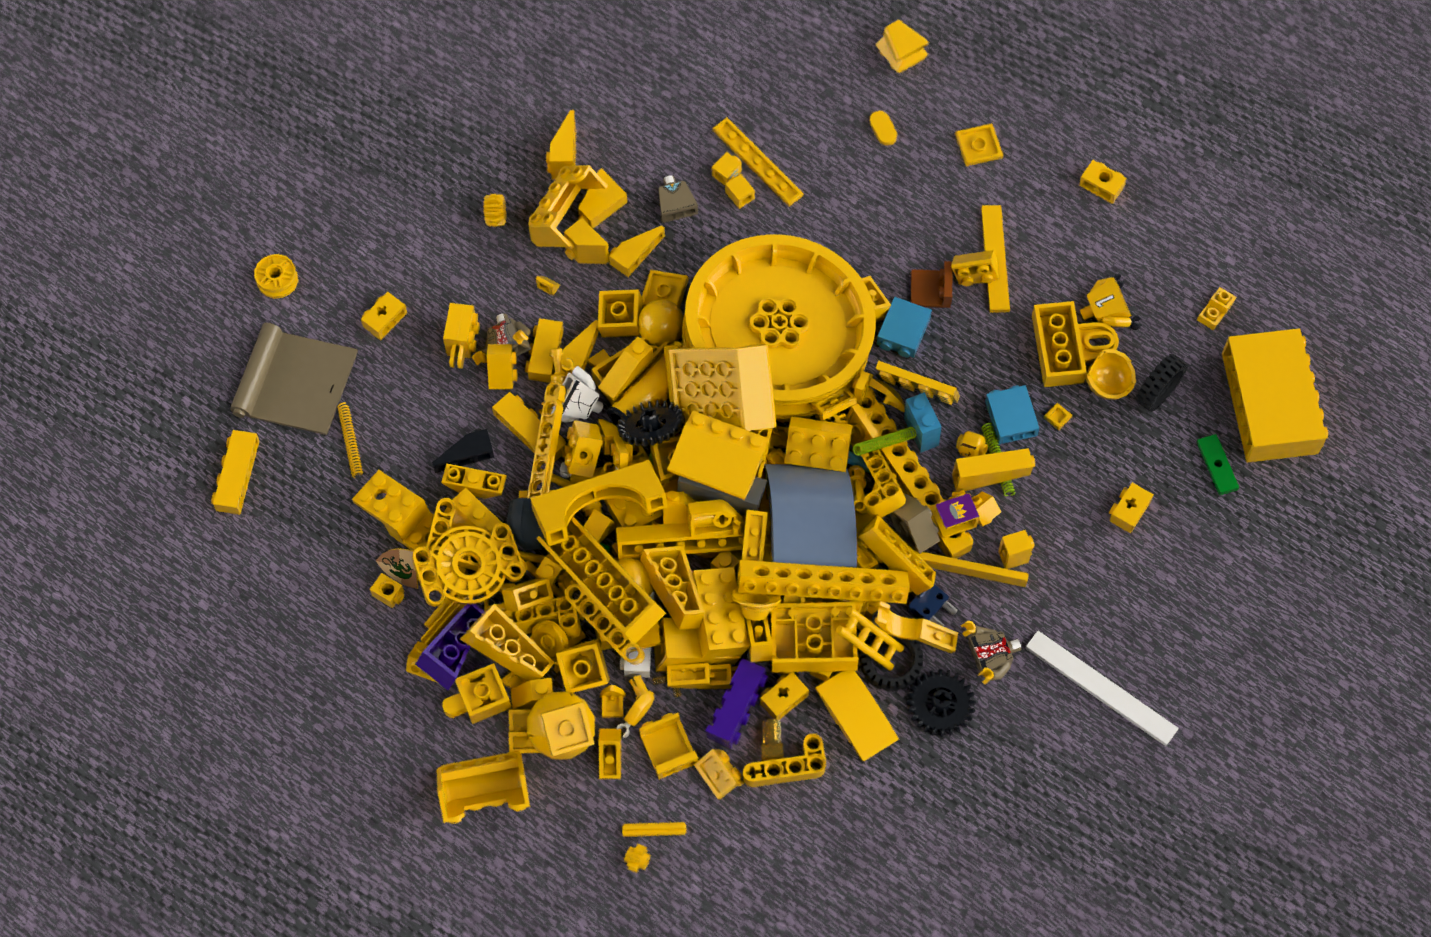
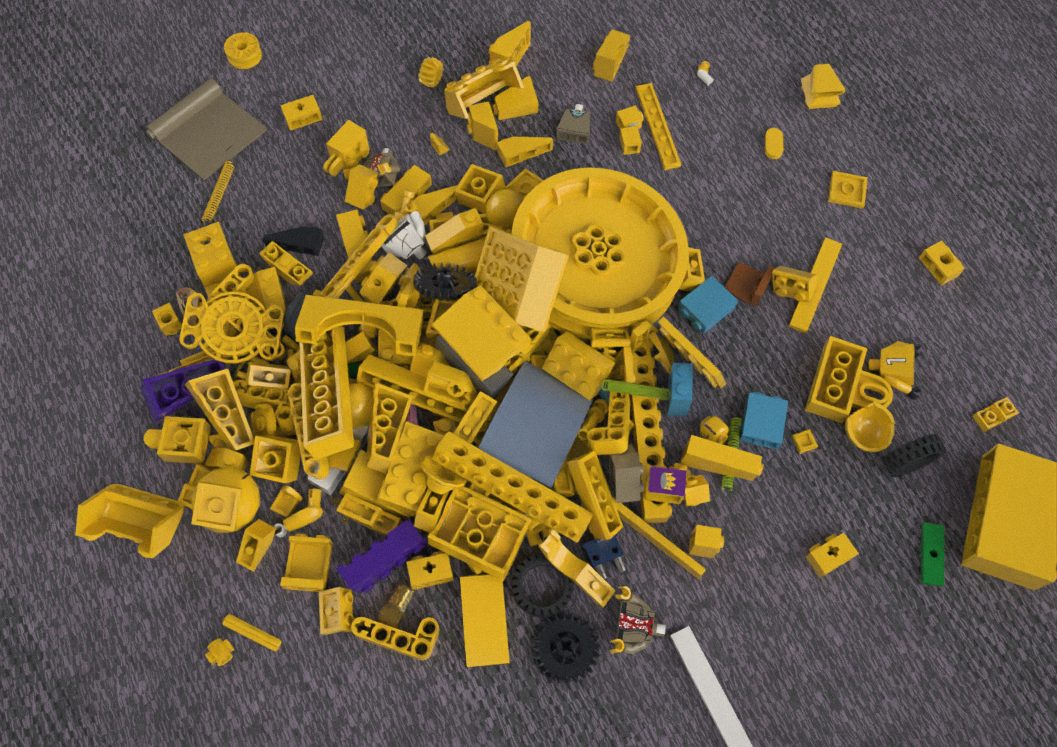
camera: 25 degrees right, 0 degrees up
(236, 472) = (118, 176): yellow brick -> none
(669, 105) = (610, 55): none -> yellow wedge
(772, 81) = (703, 73): none -> white arm
(859, 641) = (516, 557): yellow bar -> none

